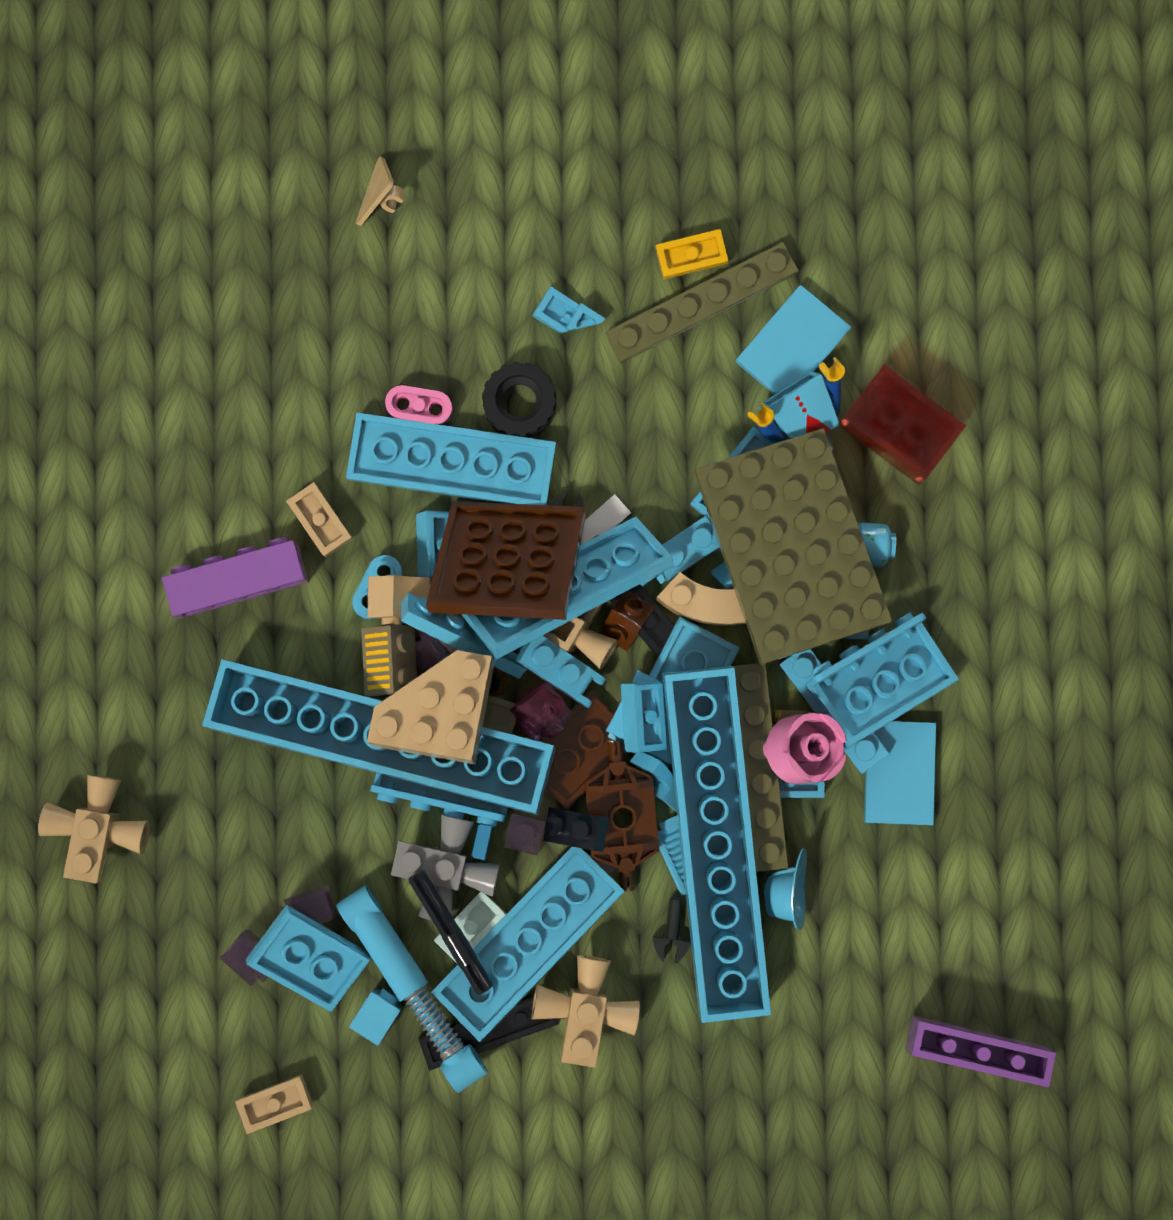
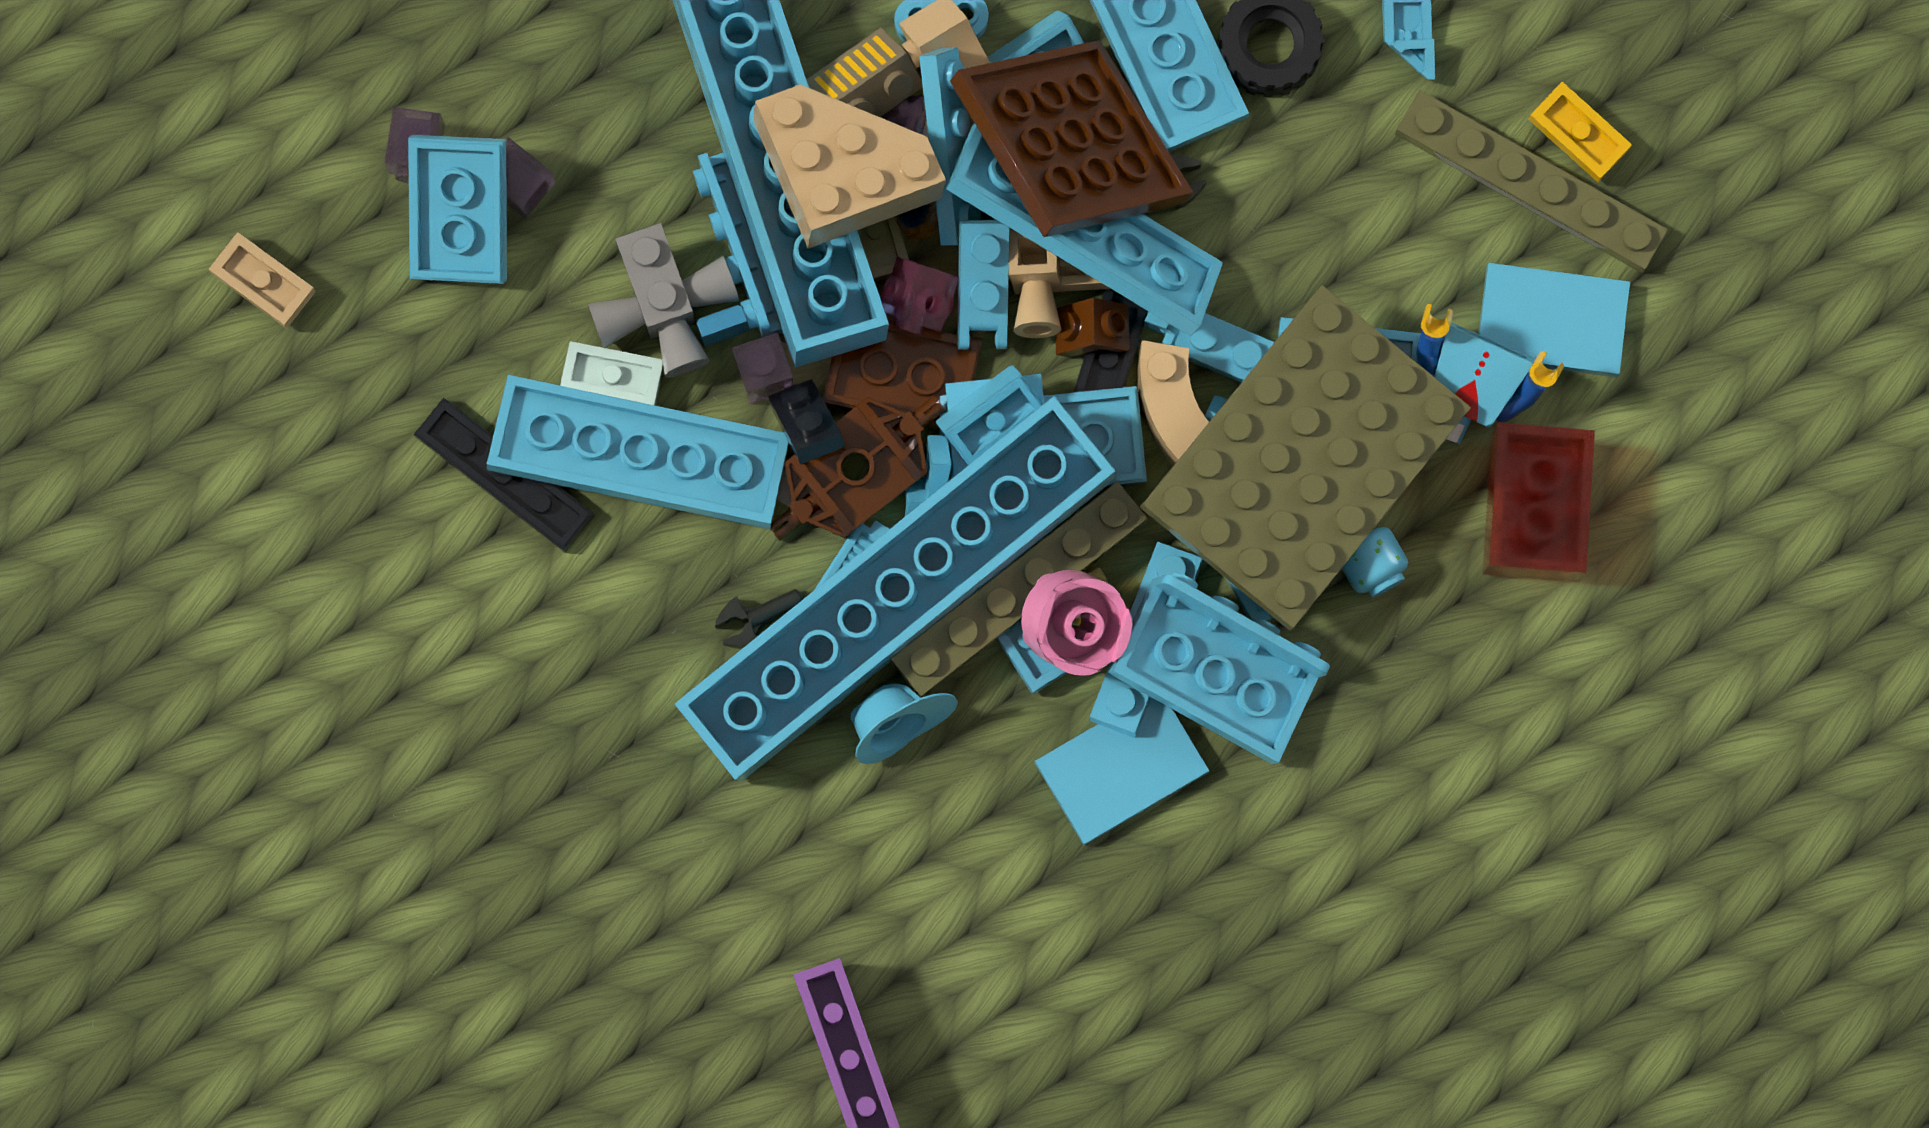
camera: 50 degrees right, 5 degrees down
(367, 919) = (544, 250): medium azure piece -> none
(377, 1015) = (441, 332): medium azure brick -> none
(450, 932) = (593, 348): black axle -> none
(585, 1012) = (599, 566): tan brick -> none
(604, 518) = (1201, 231): white sticker -> none

